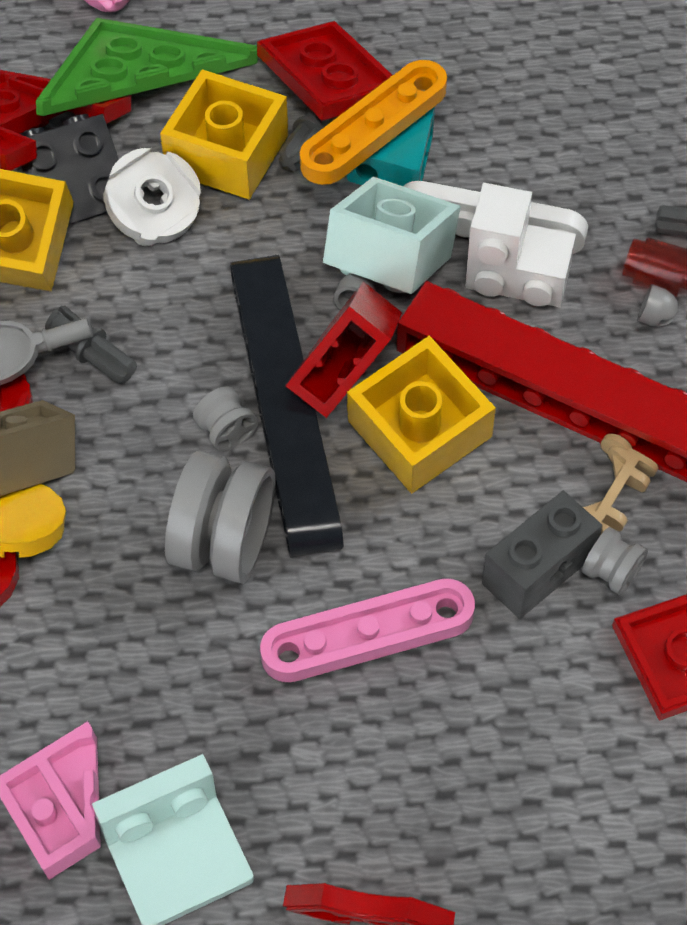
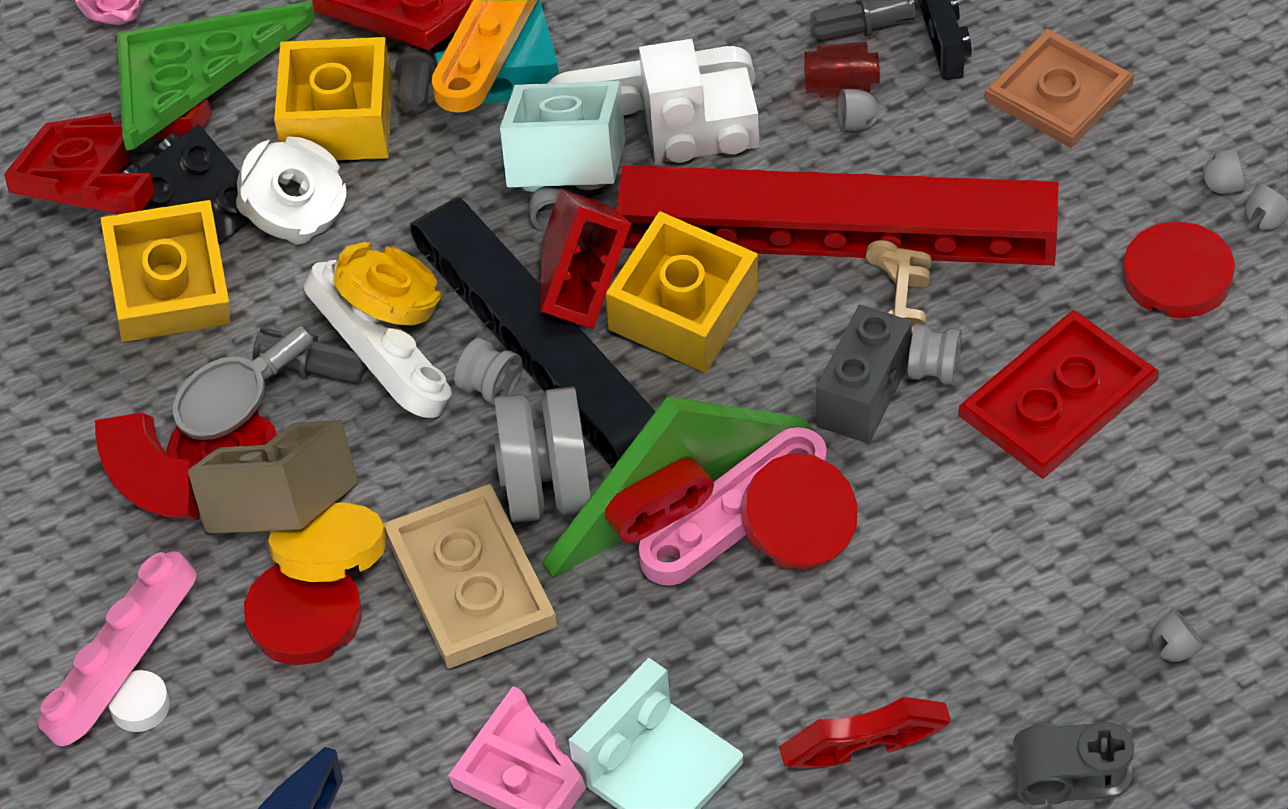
camera: 20 degrees left, 5 degrees down
(110, 601) = (469, 576): none -> tan plate
(152, 354) = (382, 348): none -> white plate
(181, 308) = (386, 284): none -> yellow tile
(296, 601) = (659, 500): none -> red beam
(322, 571) = (679, 429): none -> bright green tile
(419, 662) = (799, 511): none -> red tile

